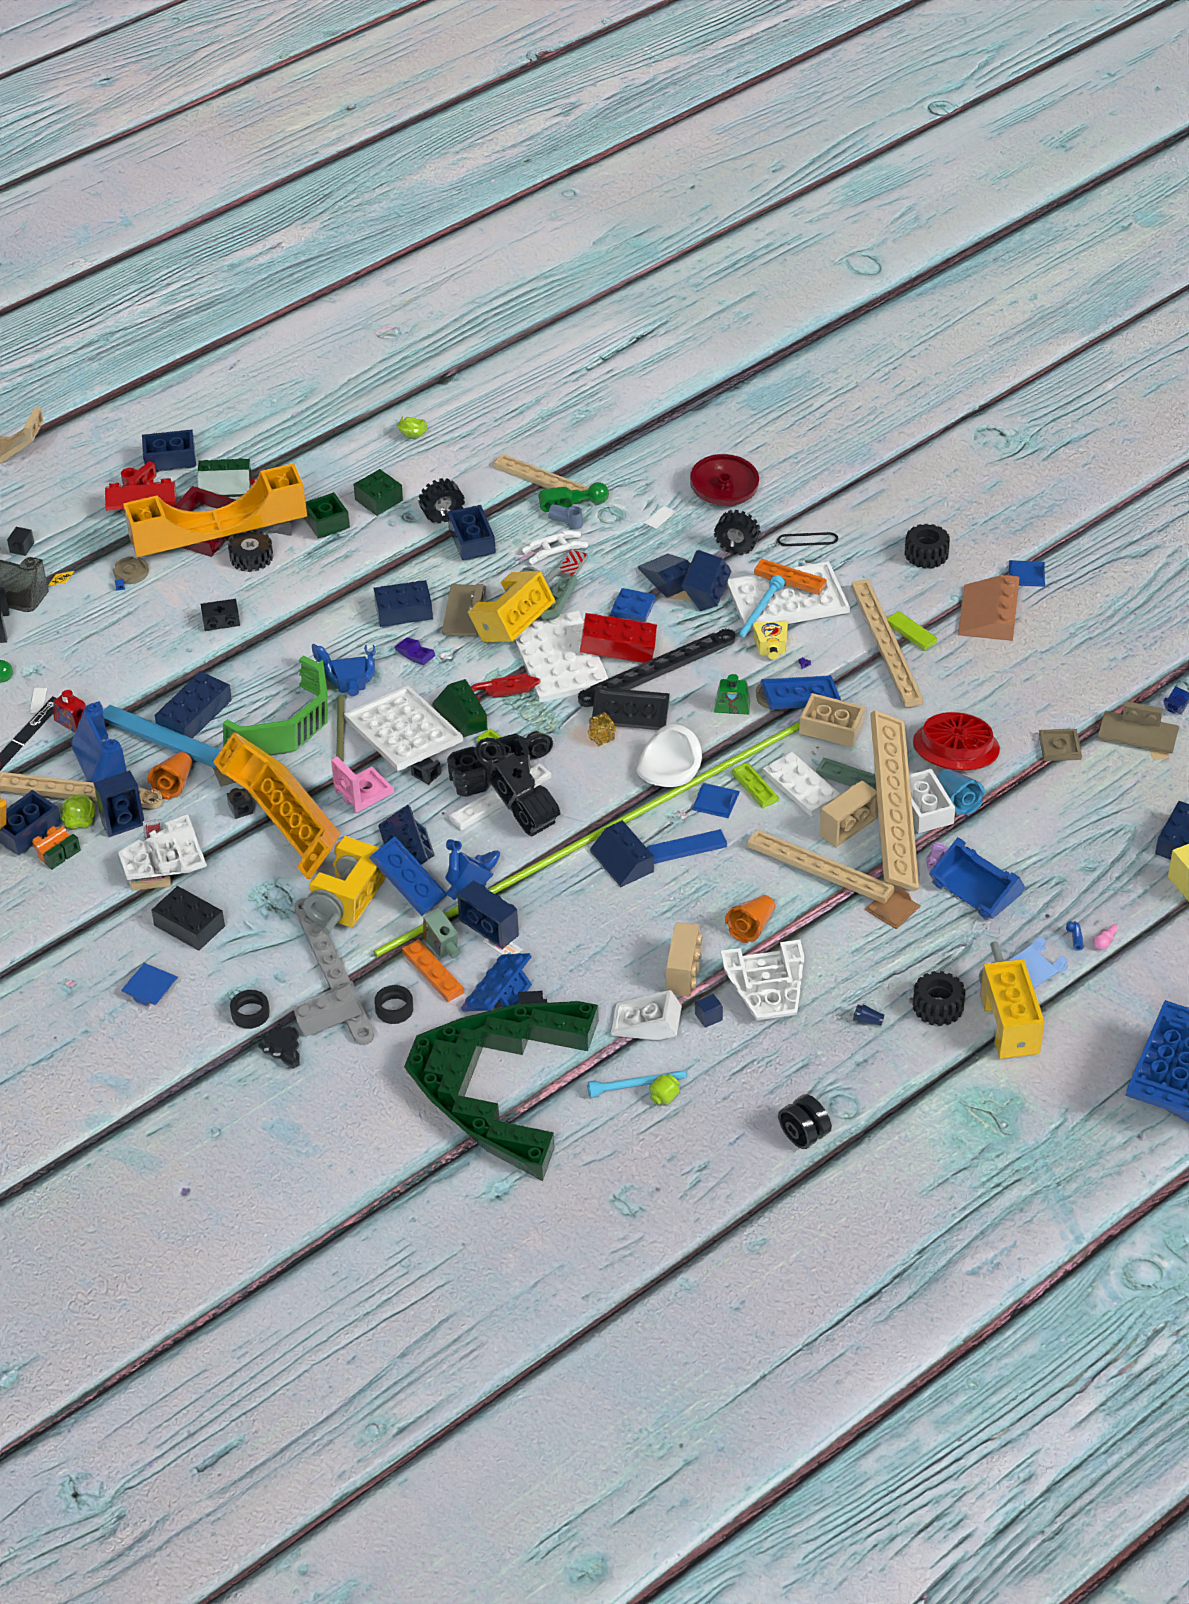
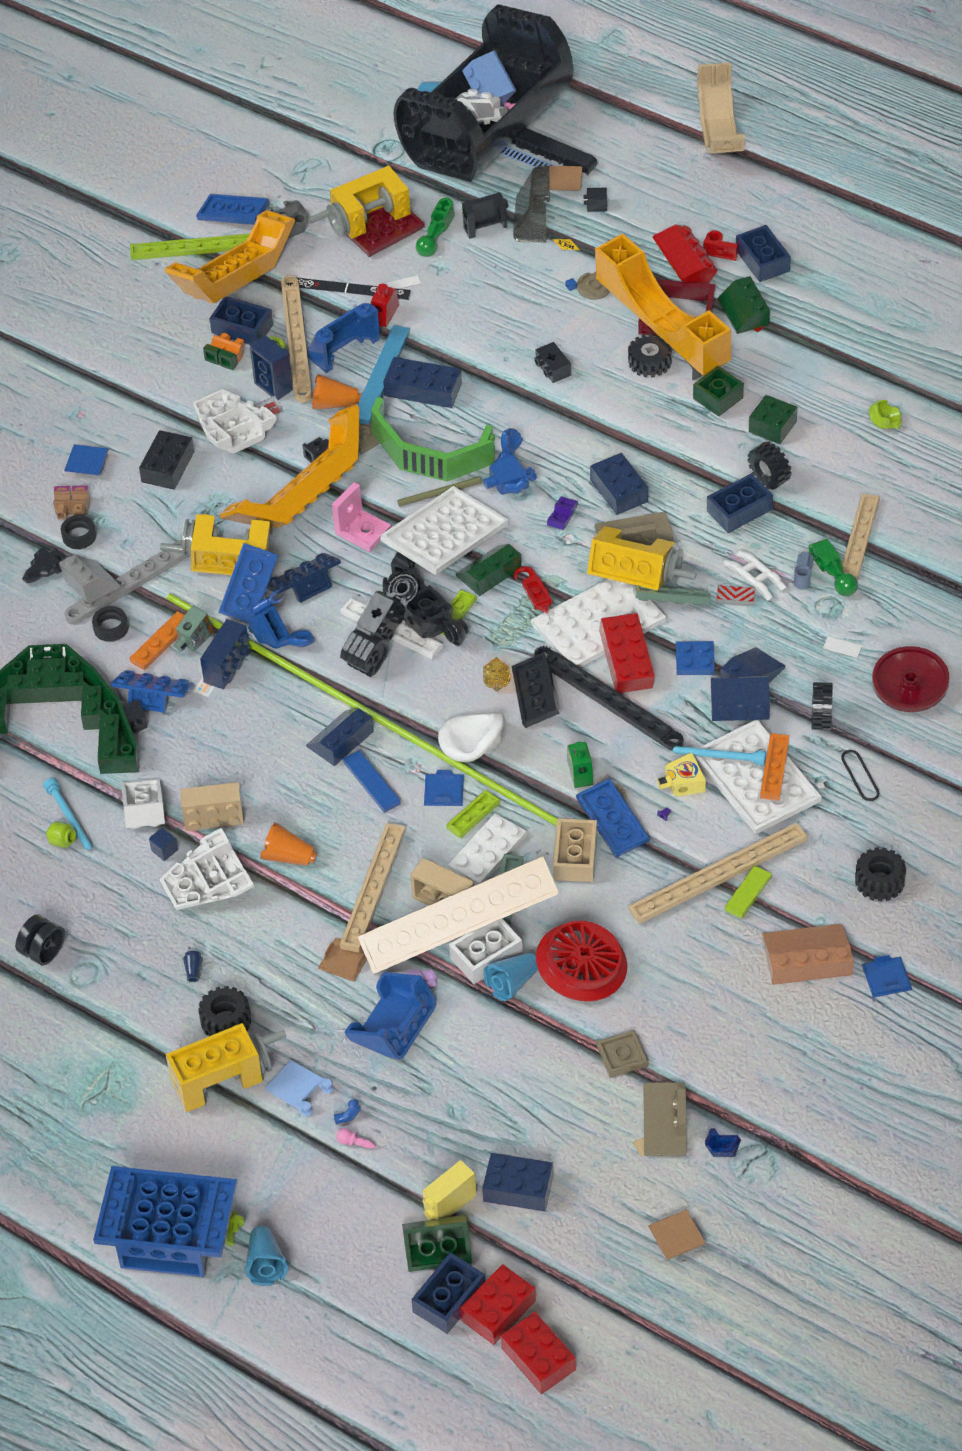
camera: 75 degrees right, 5 degrees up
(202, 1006) = (71, 503): none -> medium nougat hips

